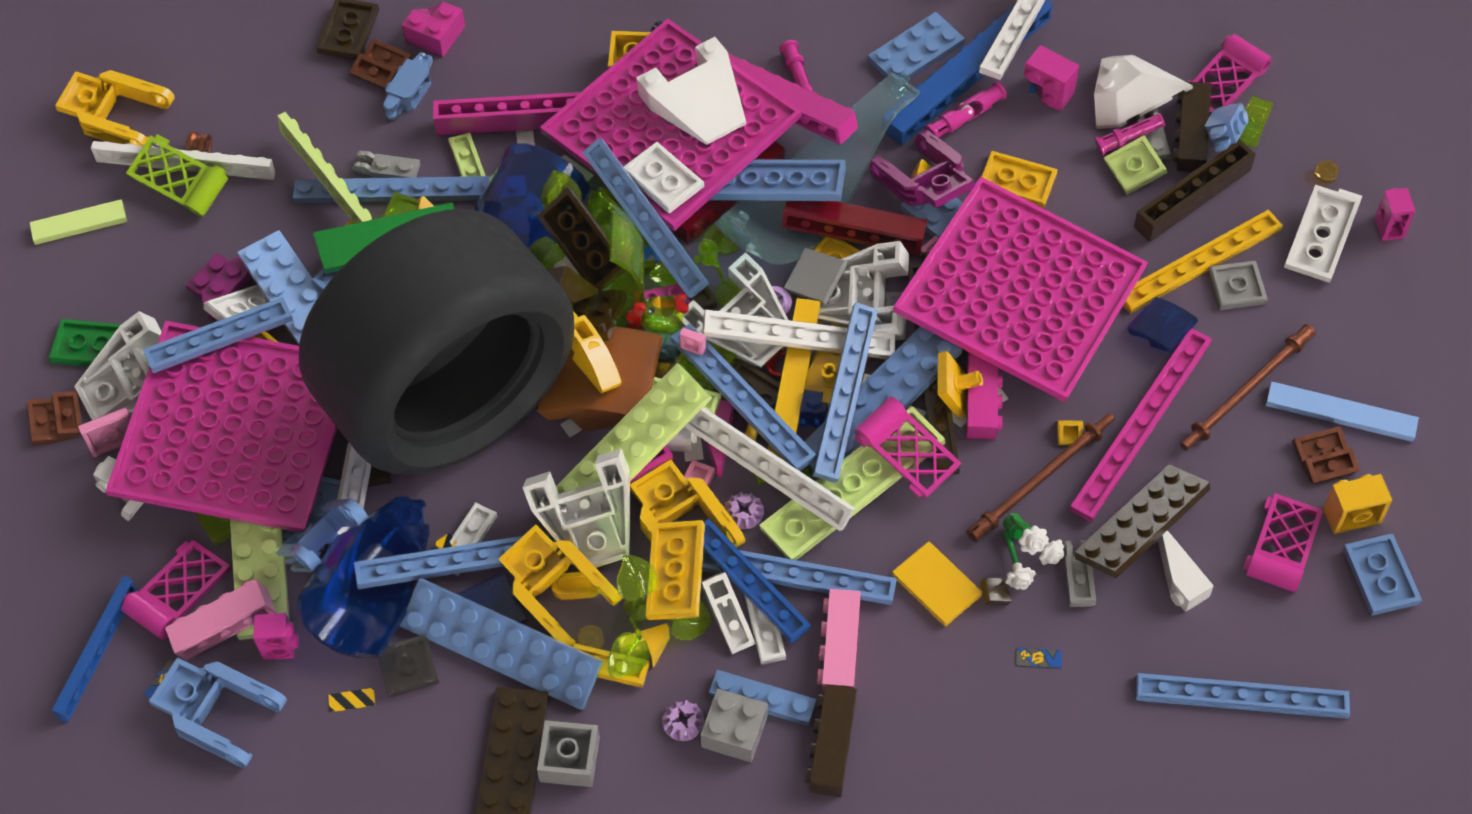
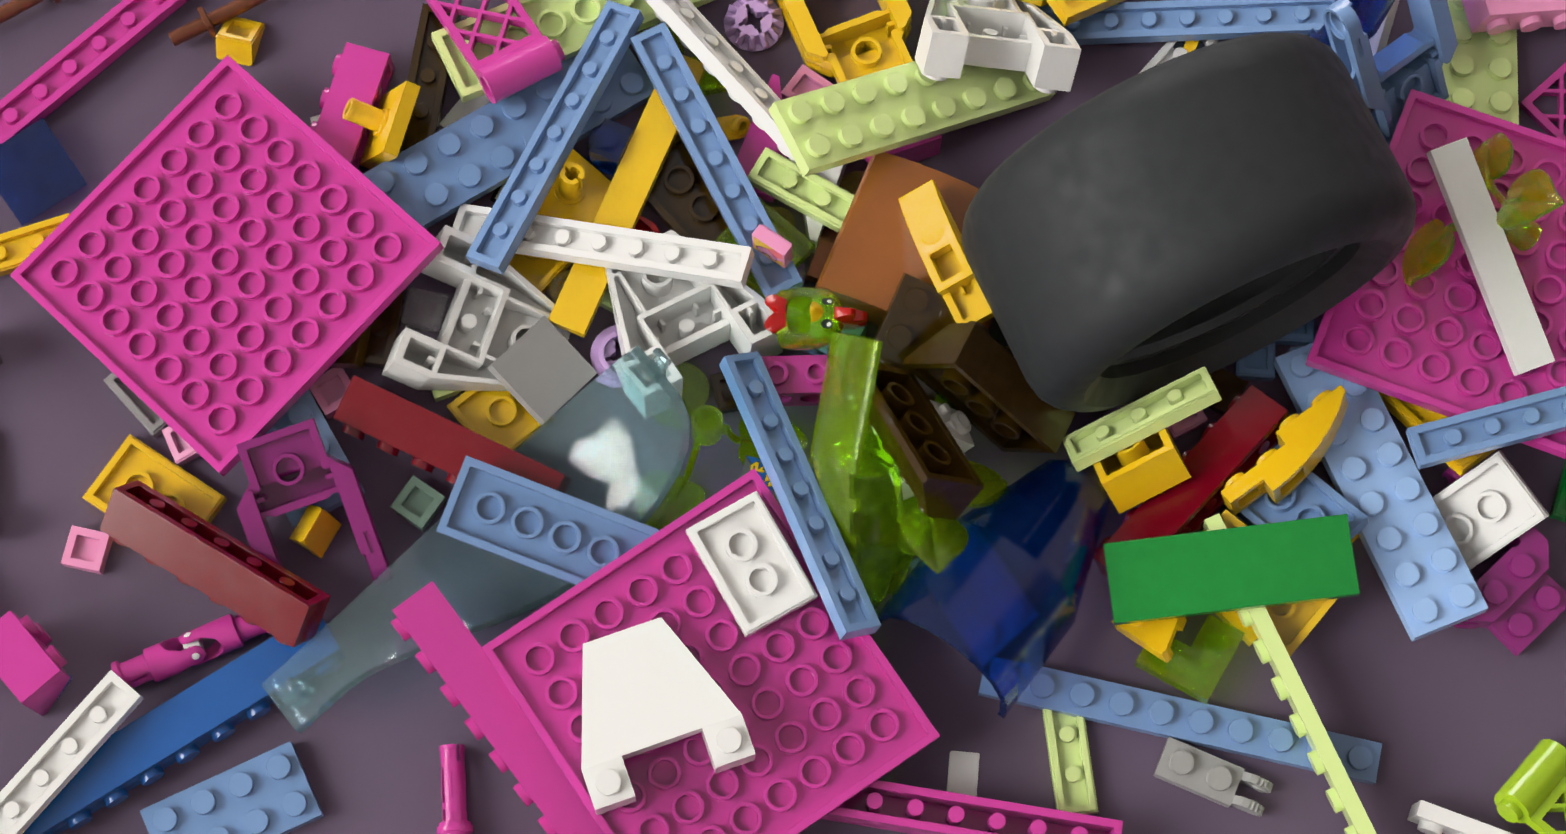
camera: 170 degrees left, 15 degrees up
(228, 411) = (1526, 201): none -> clear neon green plant
(248, 411) = (1490, 256): none -> white tile
(867, 199) = (418, 503): none -> sand green plate
(965, 134) = (214, 563): none -> dark red brick
(1044, 148) = (87, 550): none -> bright pink tile

